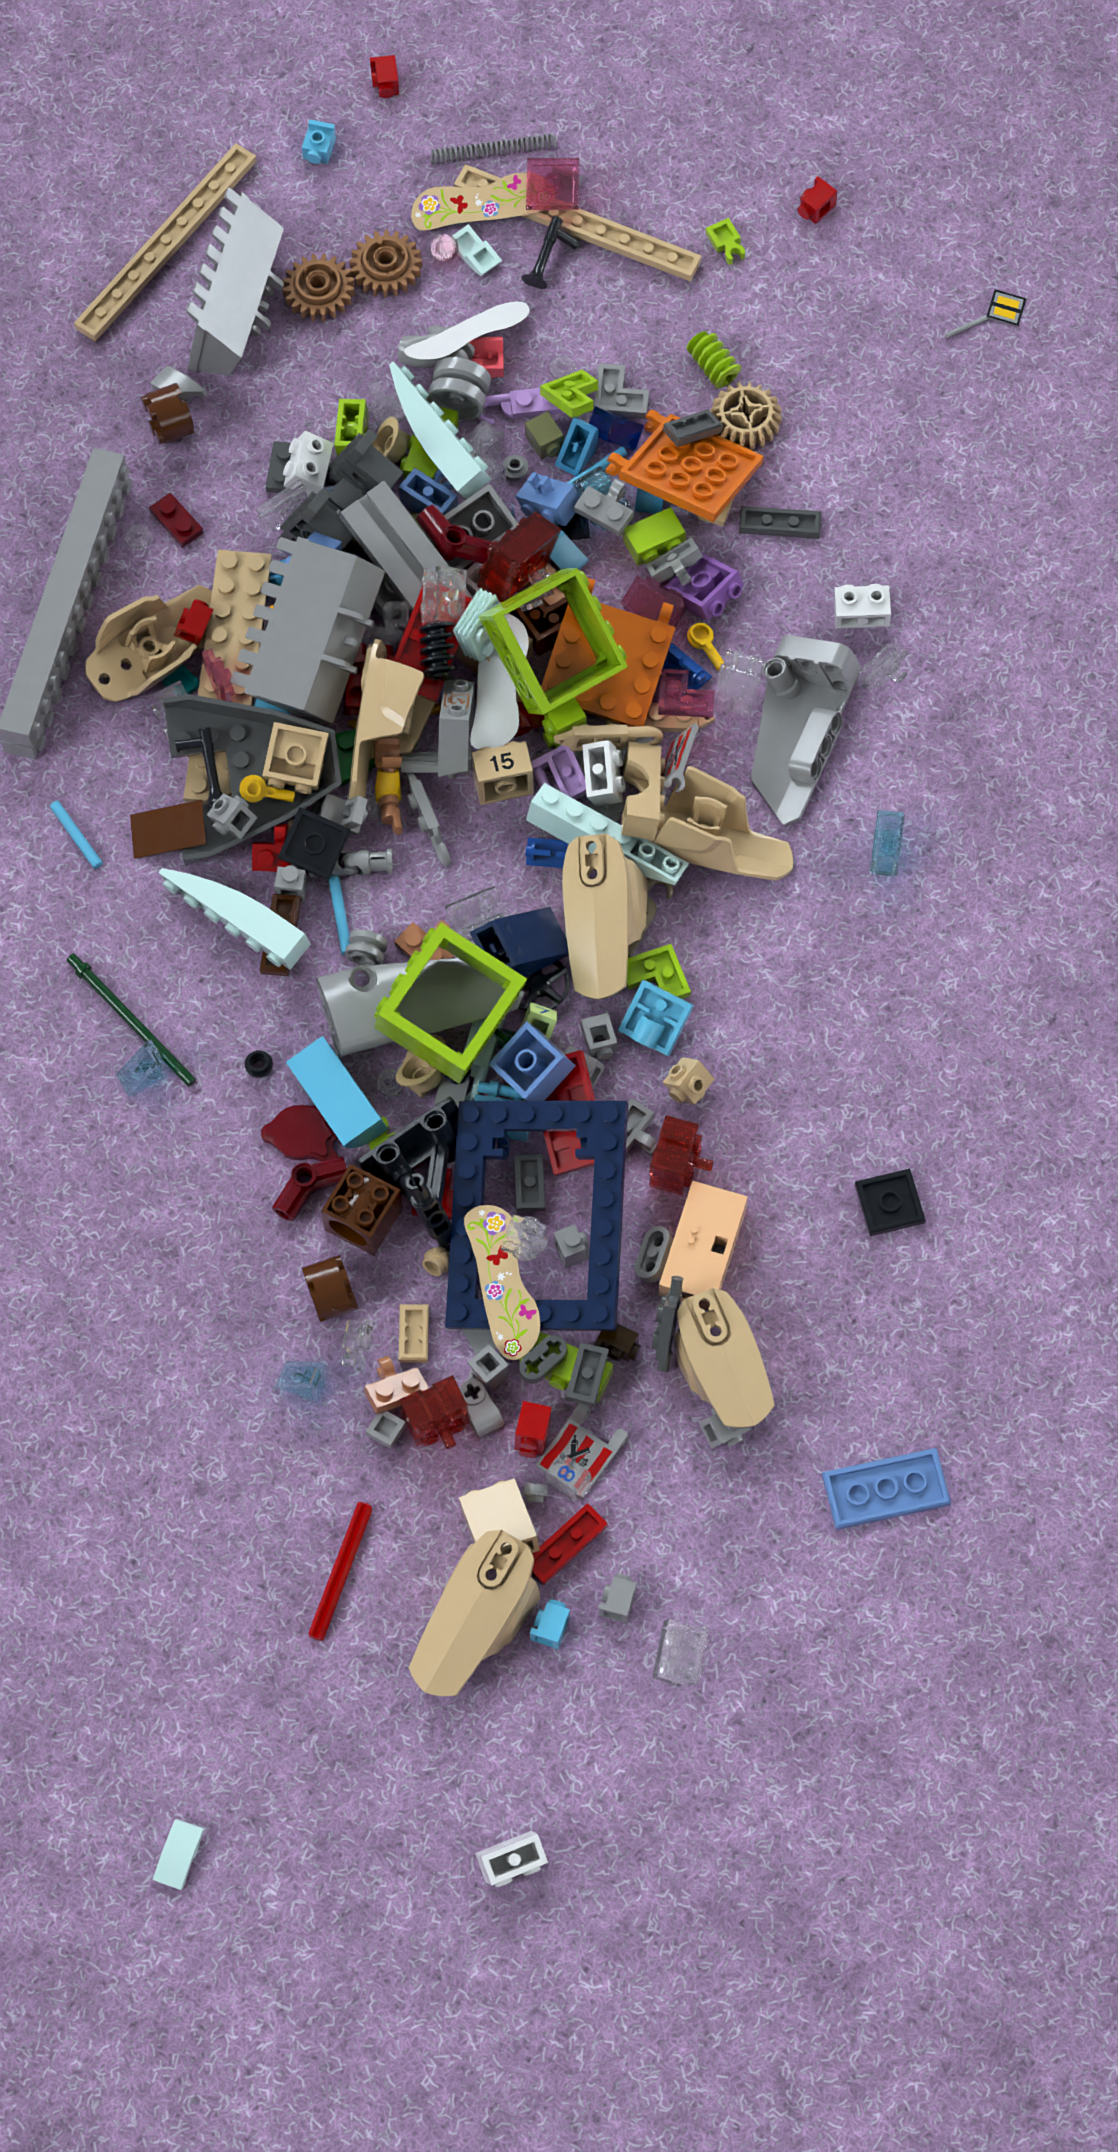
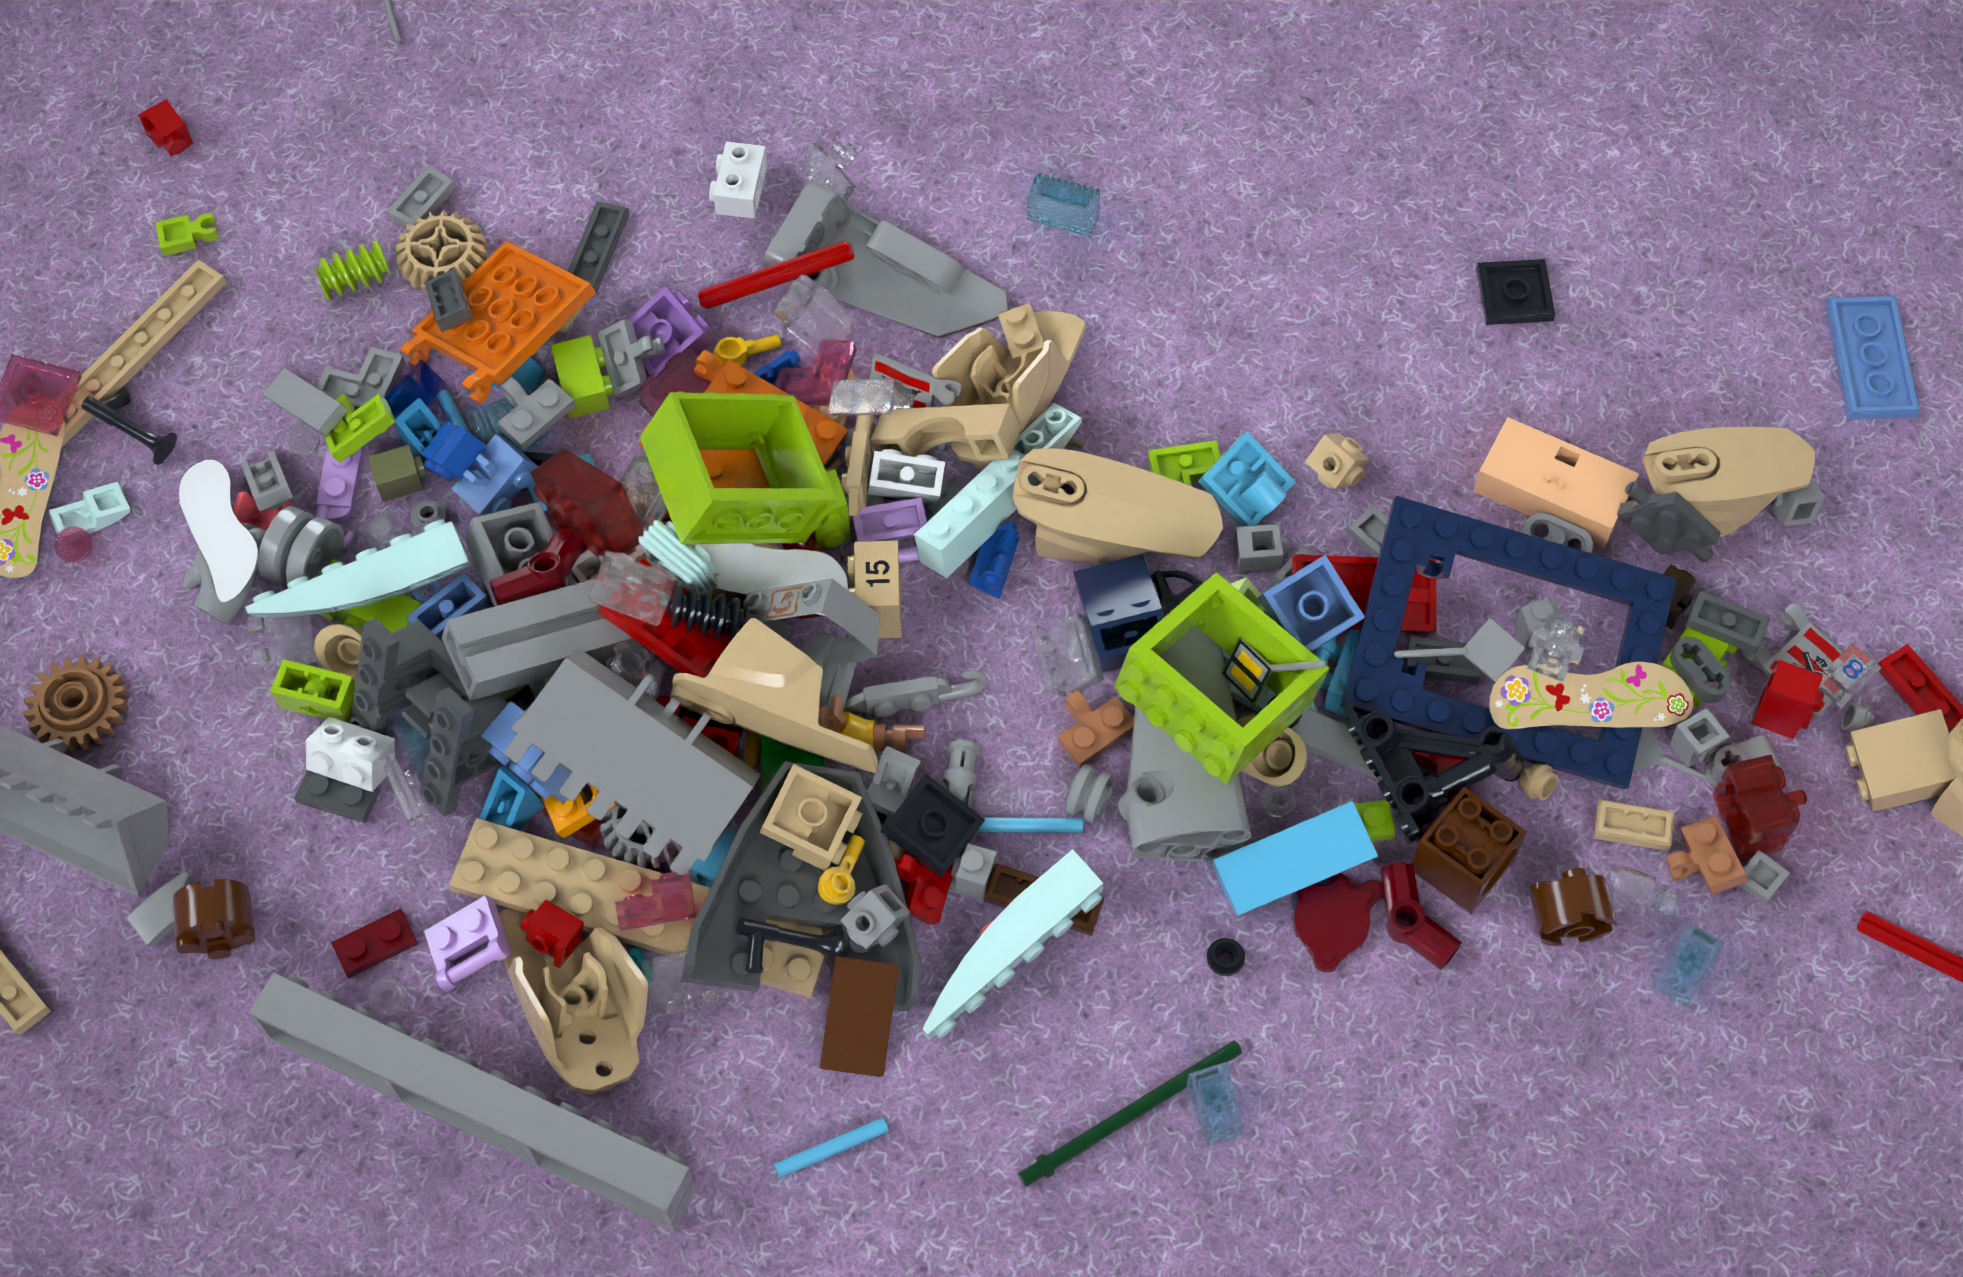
camera: 80 degrees left, 5 degrees down
(187, 568) = (463, 933): none -> lavender plate
(401, 255) = (95, 615): medium nougat gear -> none
(464, 1033) = (1250, 671): none -> piece
(515, 352) = (267, 482): none -> light grey hinge
(522, 1196) = (1489, 650): none -> light grey piece
(560, 463) = (452, 452): none -> blue brick
(587, 358) = (305, 402): none -> light grey tile
(662, 729) = (869, 397): none -> clear bracket
(677, 1155) = (1442, 480): clear red brick -> none
(759, 836) = (1021, 332): none -> tan plate
(765, 646) = (776, 275): none -> red axle
(794, 390) = (421, 197): none -> light grey plate

